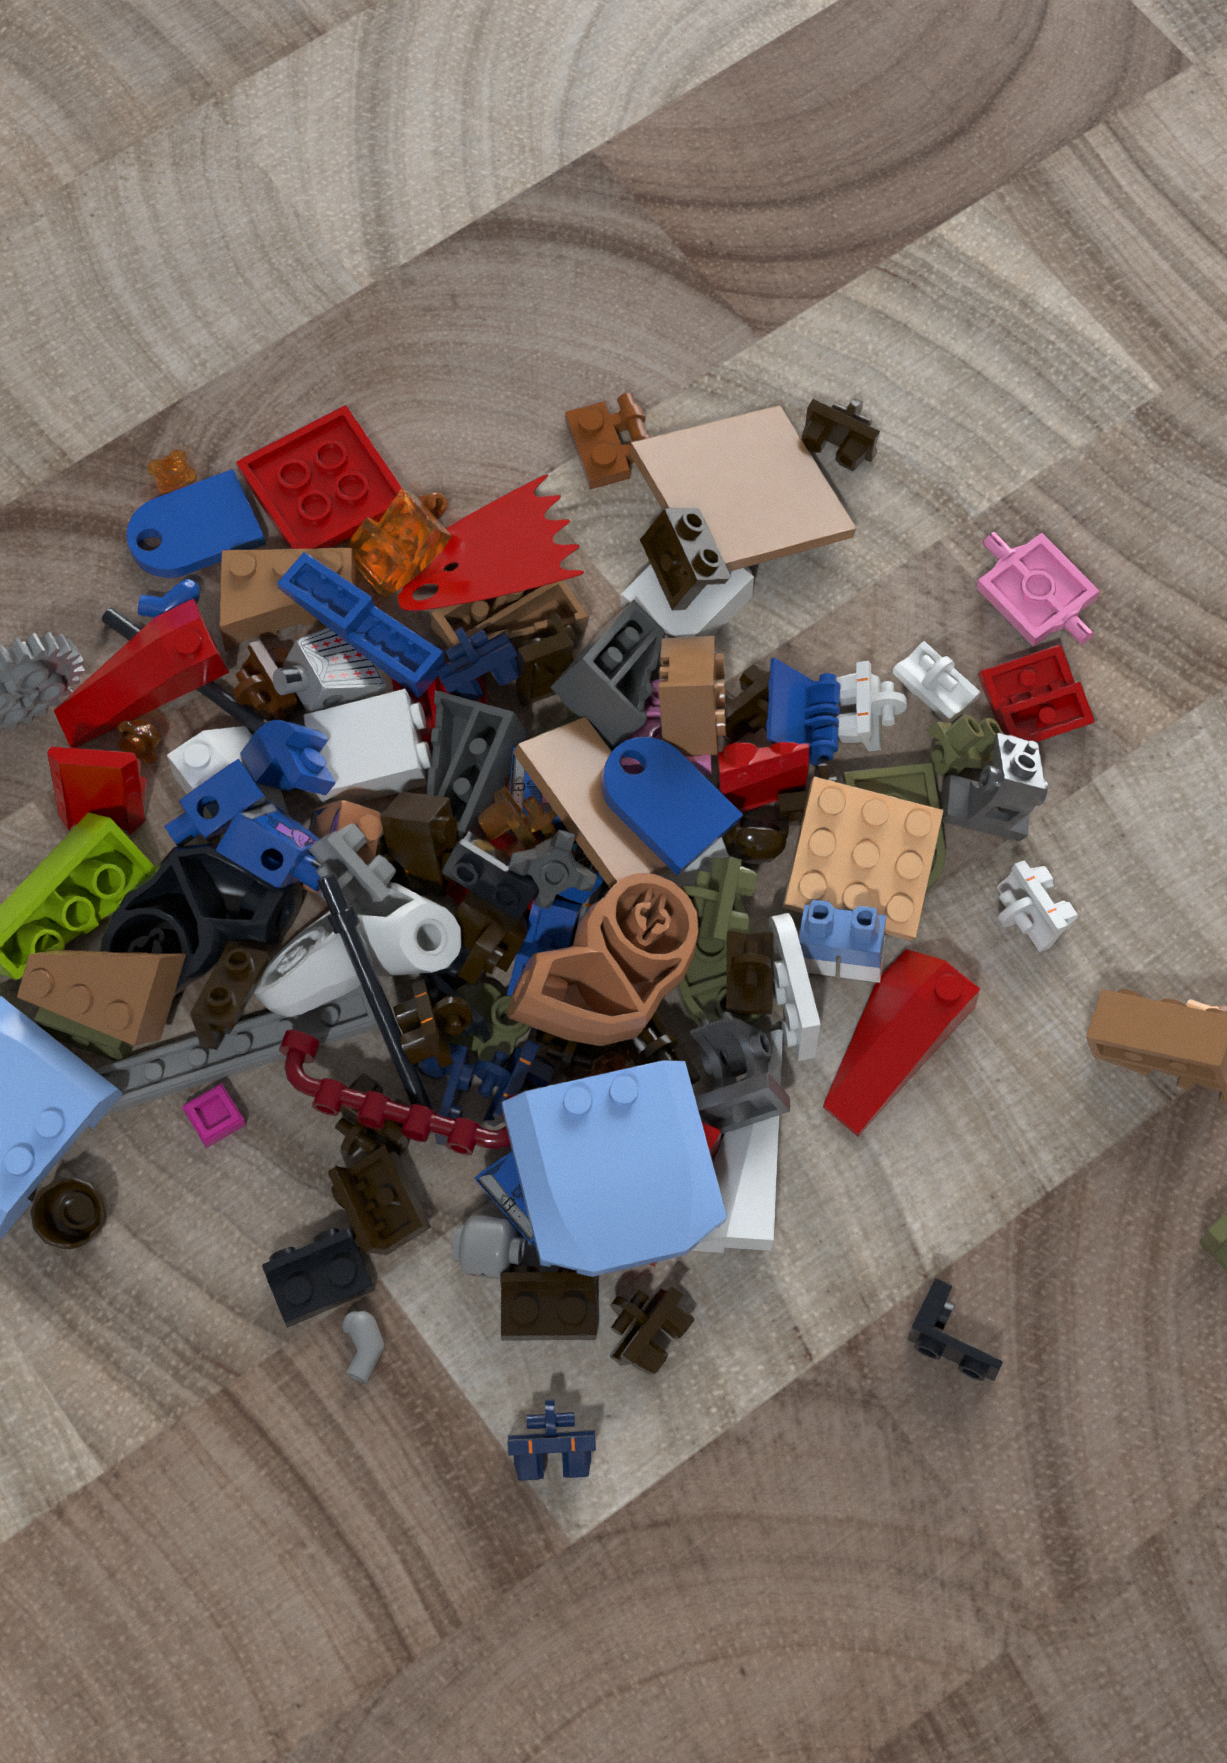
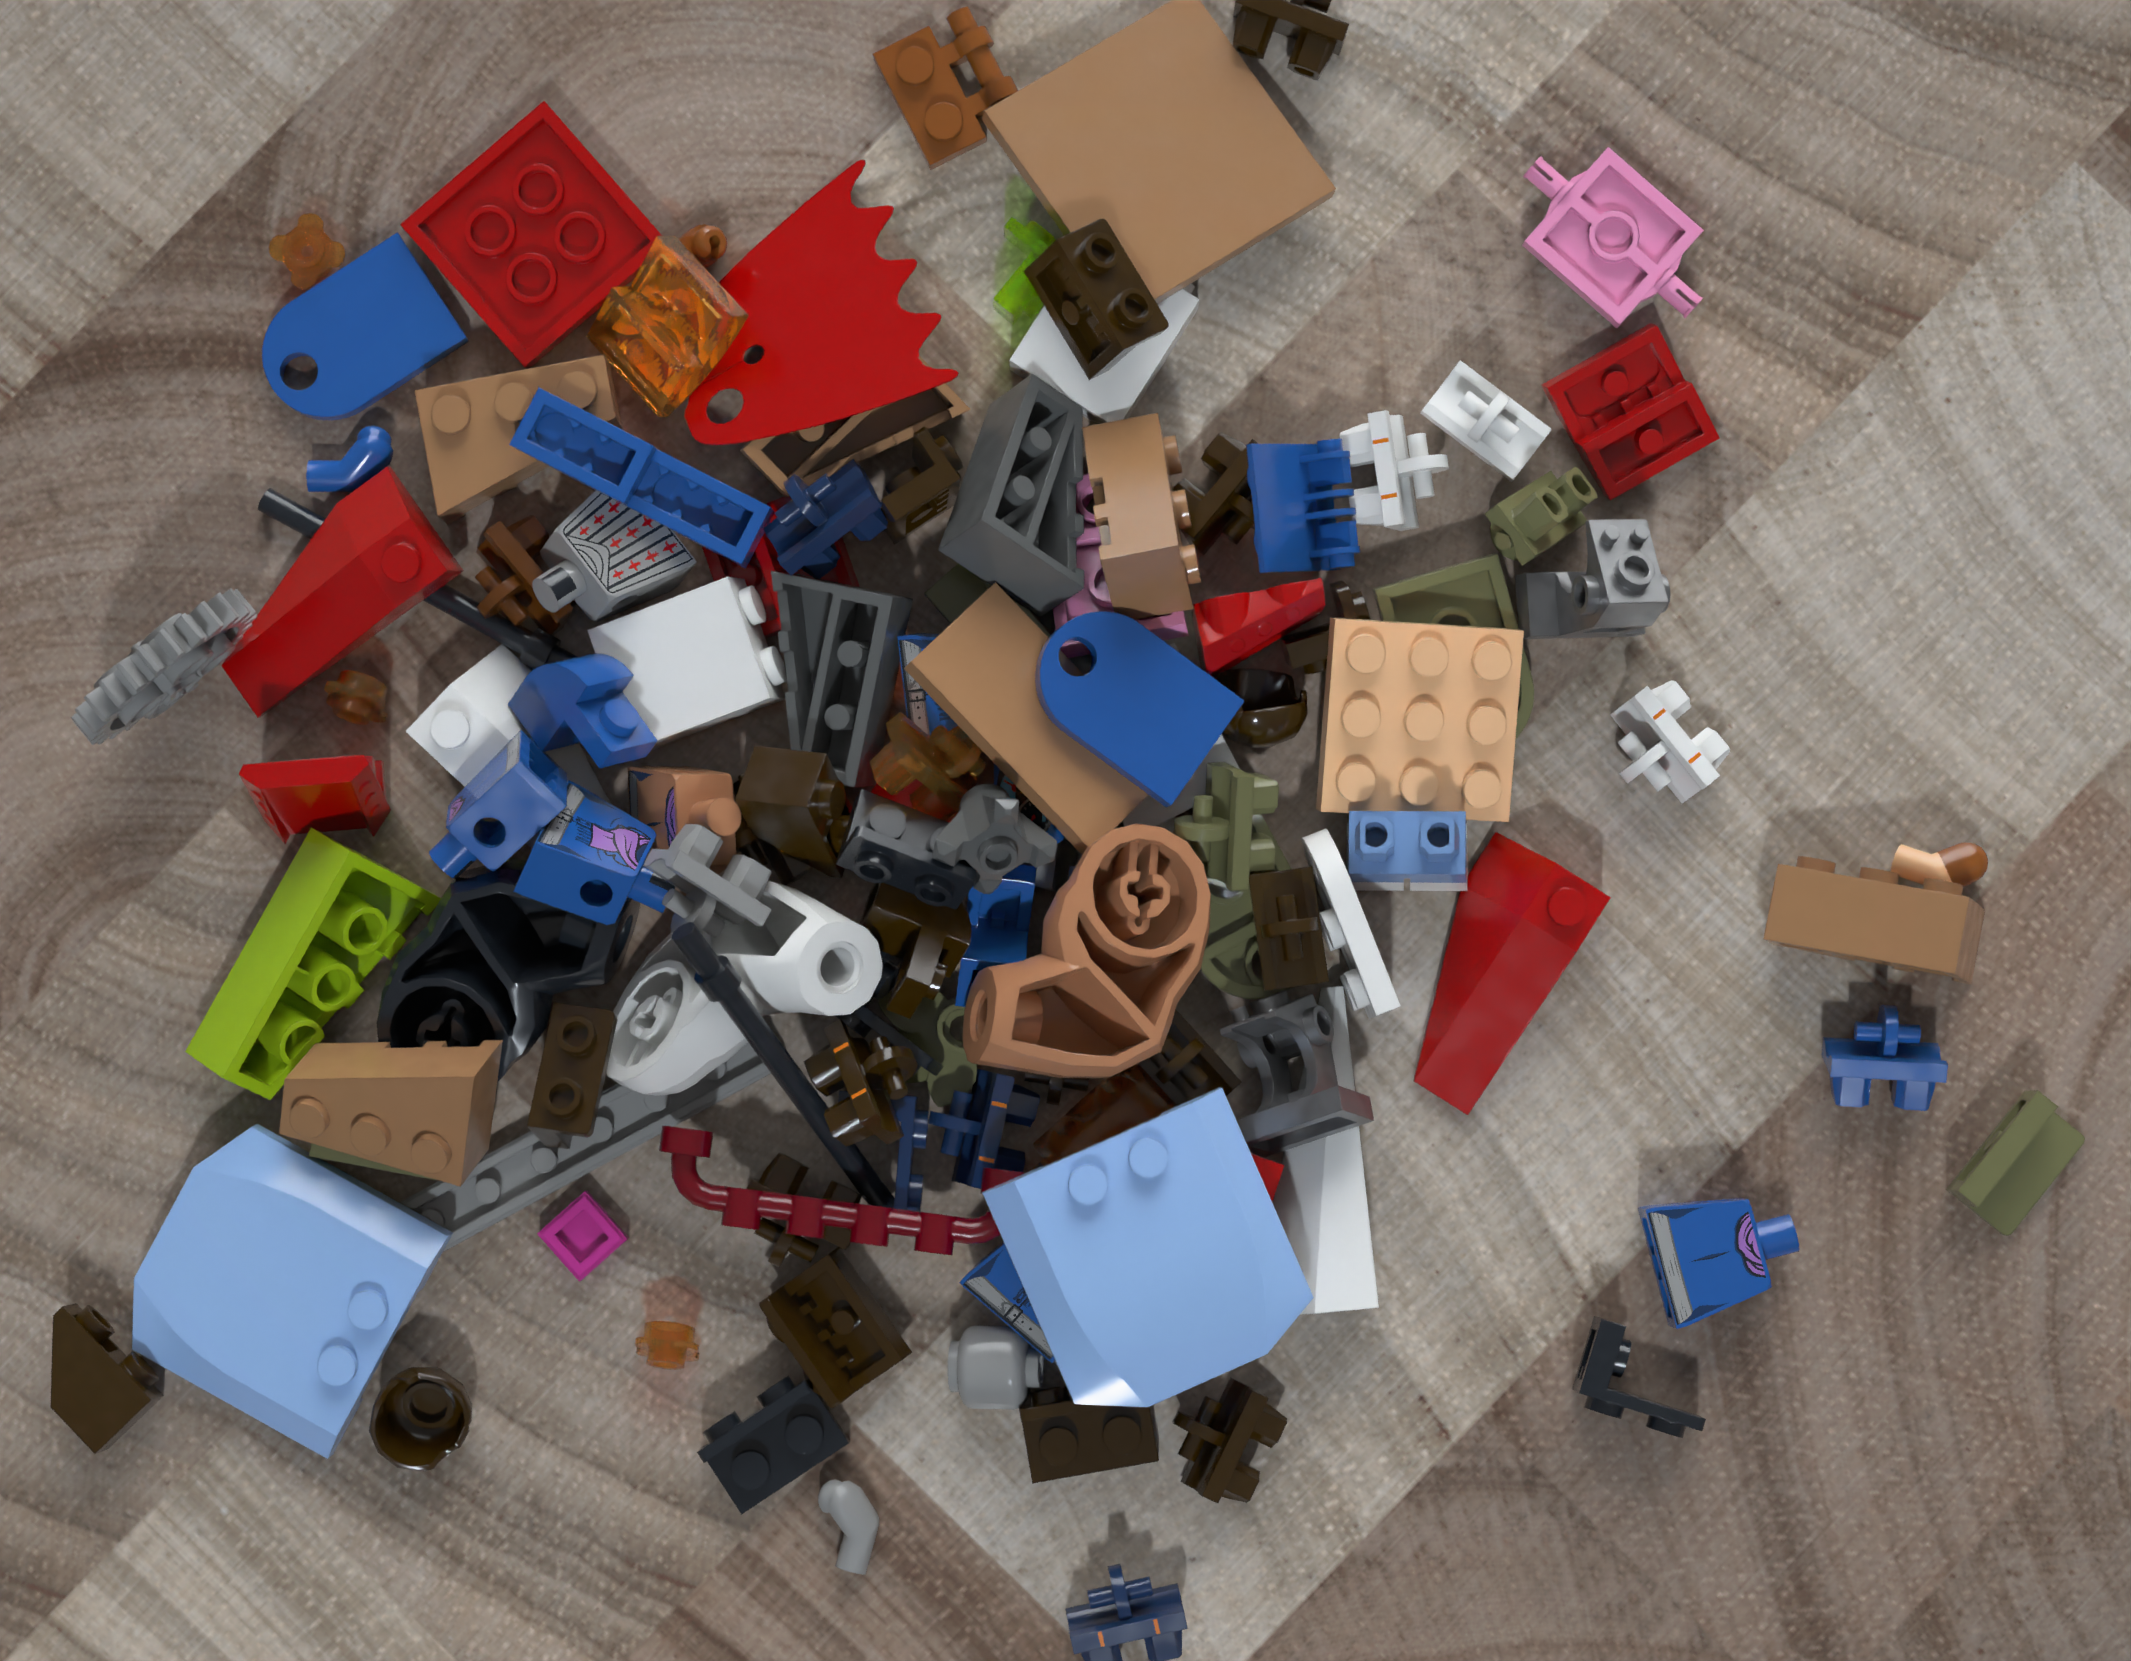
camera: 10 degrees left, 20 degrees up
(257, 1194) = (667, 1345): none -> clear orange plate
(633, 559) = (1018, 294): none -> clear neon green bracket
(1021, 1252) = (1711, 1254): none -> blue torso
(1140, 1141) = (1886, 1053): none -> blue hips

